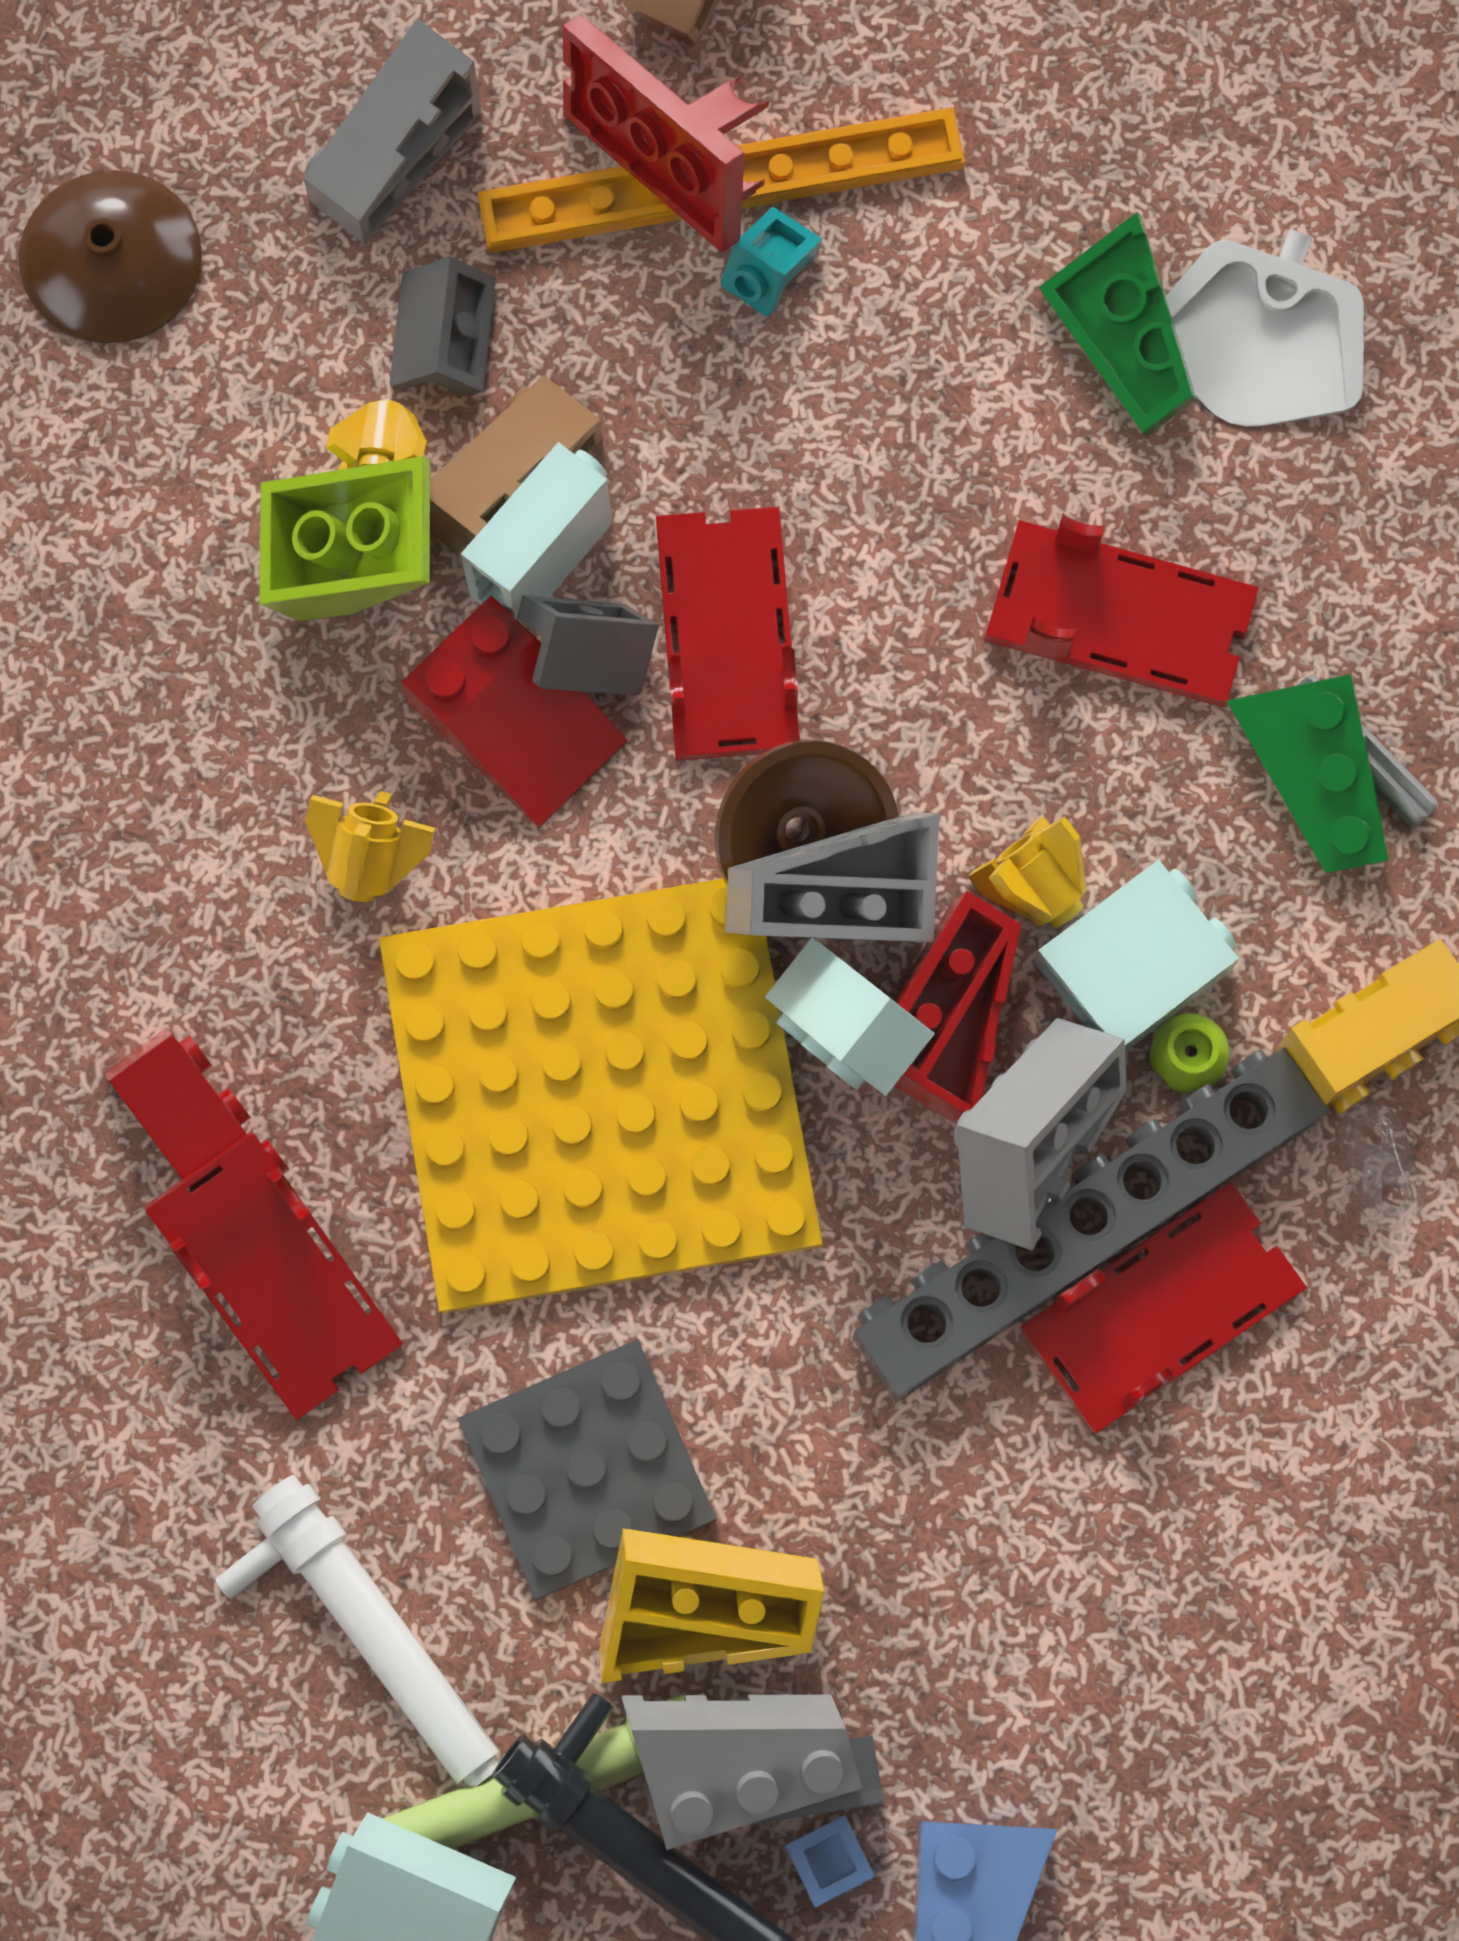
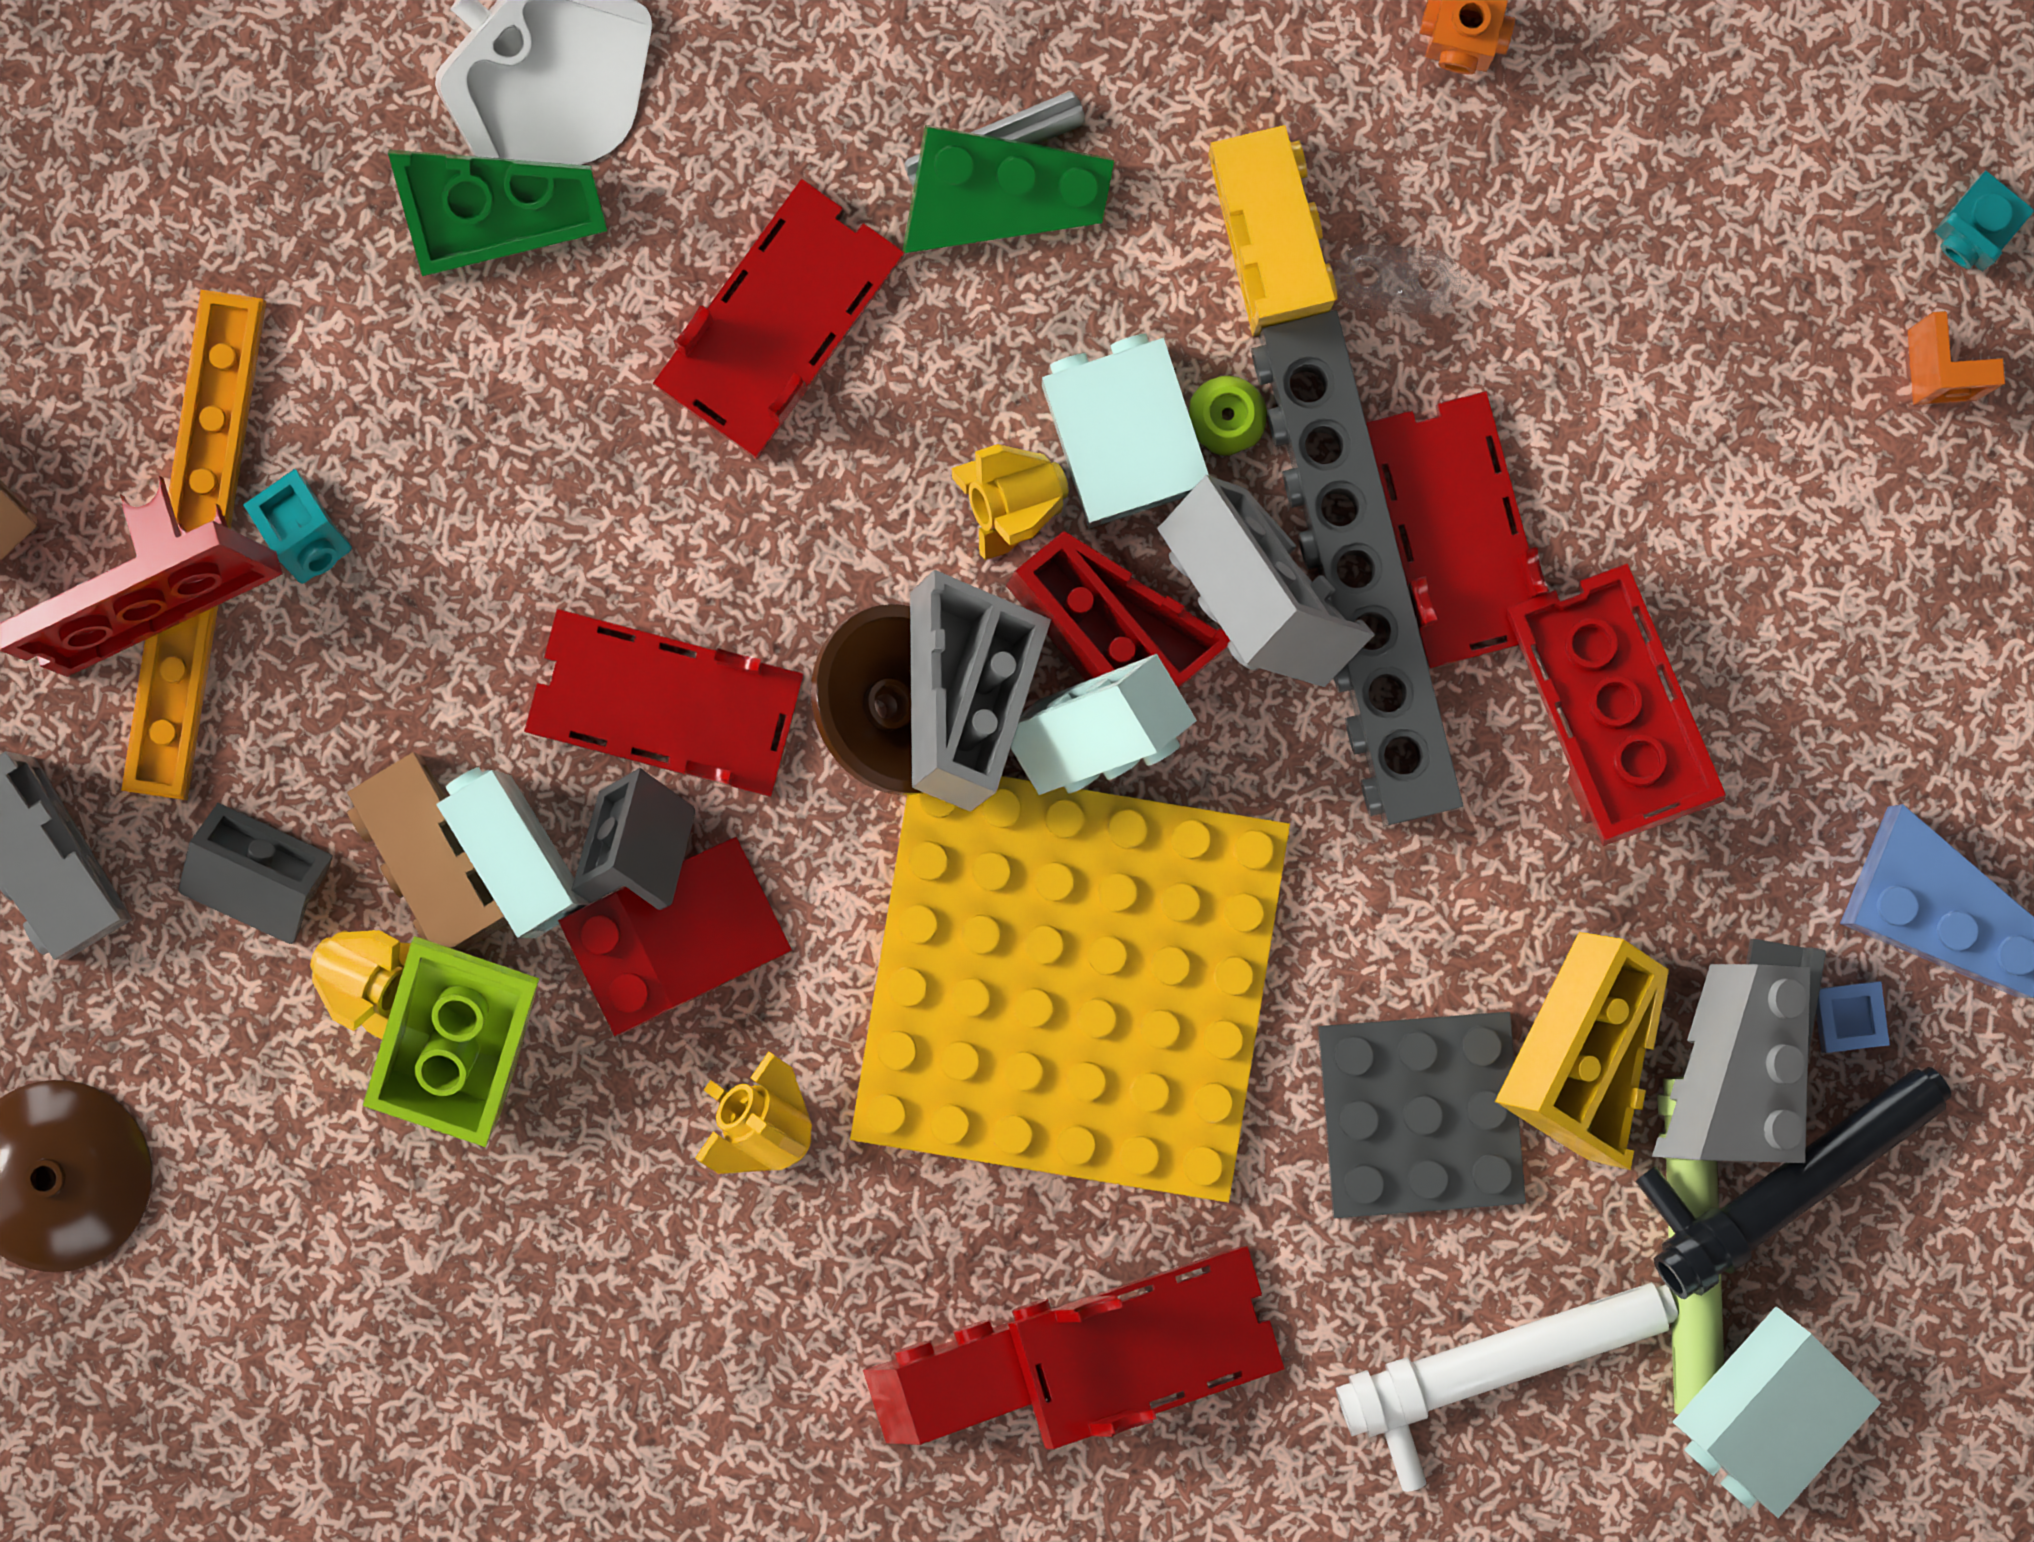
camera: 70 degrees left, 10 degrees up
(1018, 1536) = (1627, 741): none -> red piece

